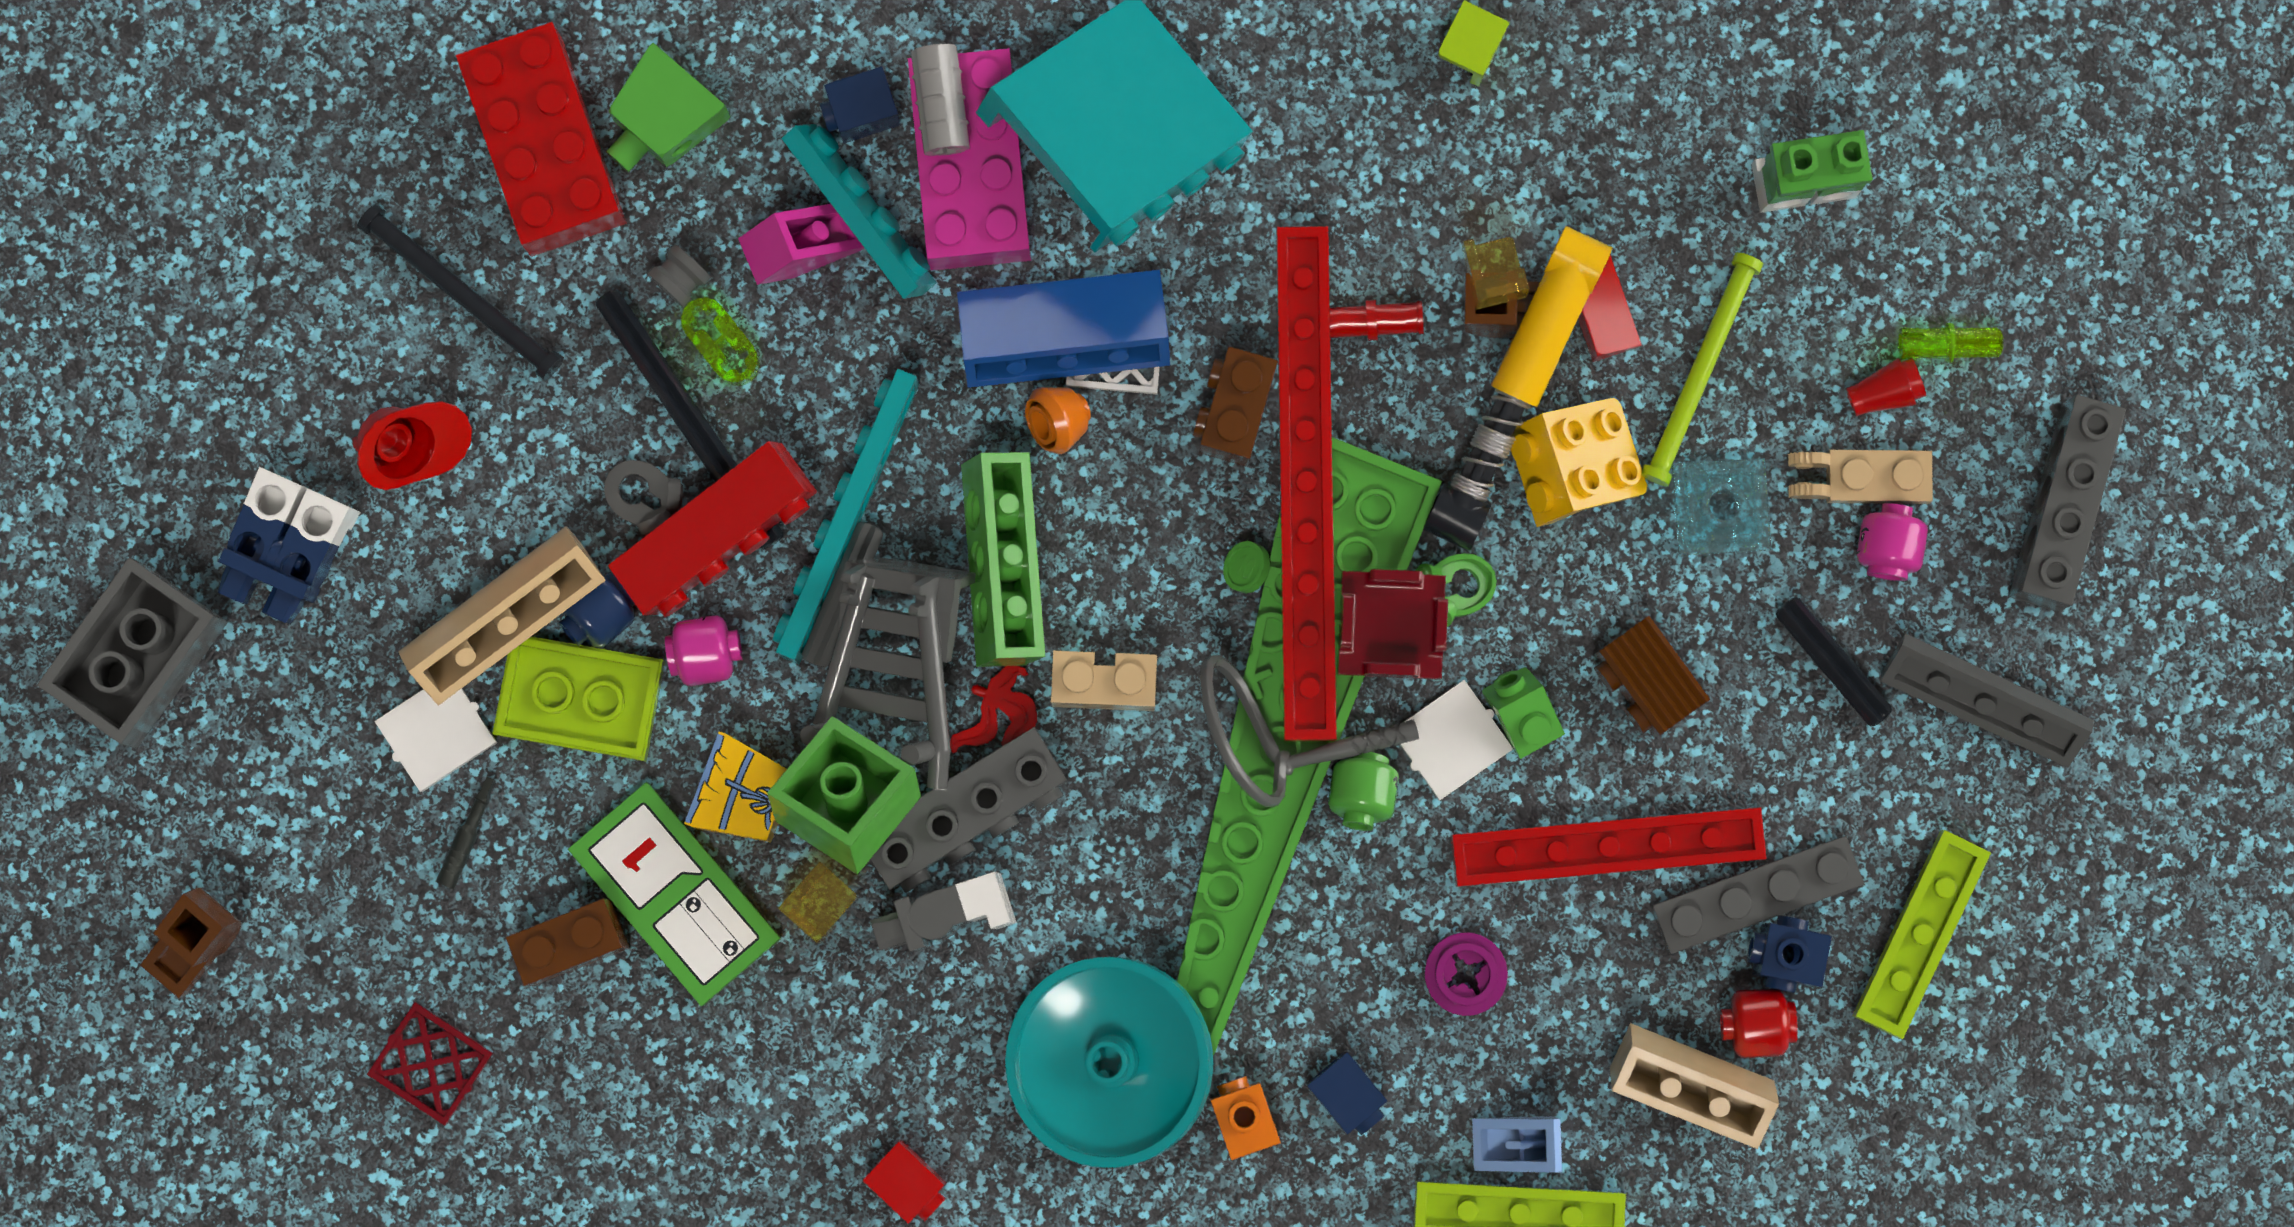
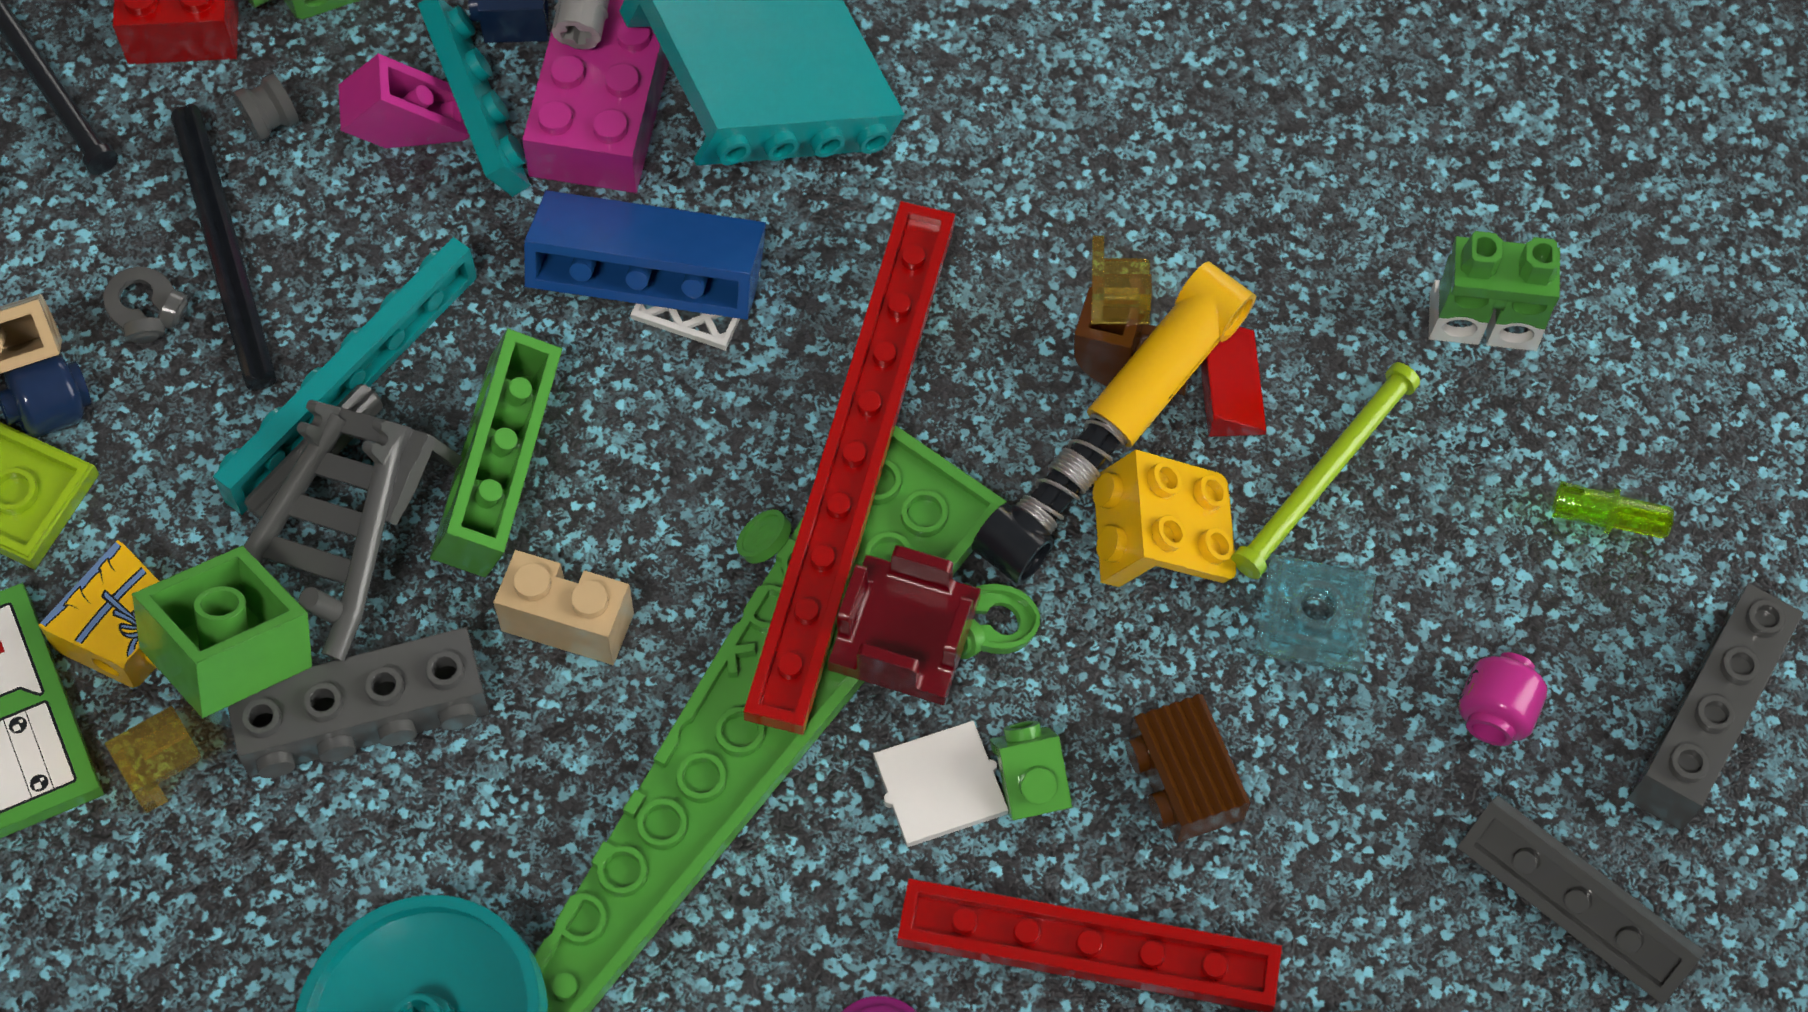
camera: 15 degrees right, 20 degrees down
(702, 650) = (139, 465): dark pink head -> none
(714, 529) = (196, 341): red brick -> none
(729, 333) = (294, 178): clear neon green beam -> none
(943, 912) = (291, 800): dark grey hips -> none
(1015, 705) = (444, 603): red piece -> none
(1057, 417) = (608, 334): orange cone -> none
(1237, 406) = (803, 371): reddish brown brick -> none
(1283, 760) = (735, 739): dark grey piece -> none
(1363, 790) = (820, 801): bright green head -> none
(1376, 320) = (980, 330): red pin -> none
(1473, 40) = (1165, 95): lime panel -> none
(1833, 661) = (1407, 813): black axle -> none
(1867, 476) = (1483, 623): tan hinge -> none
(1888, 388) = (1532, 538): red cone -> none

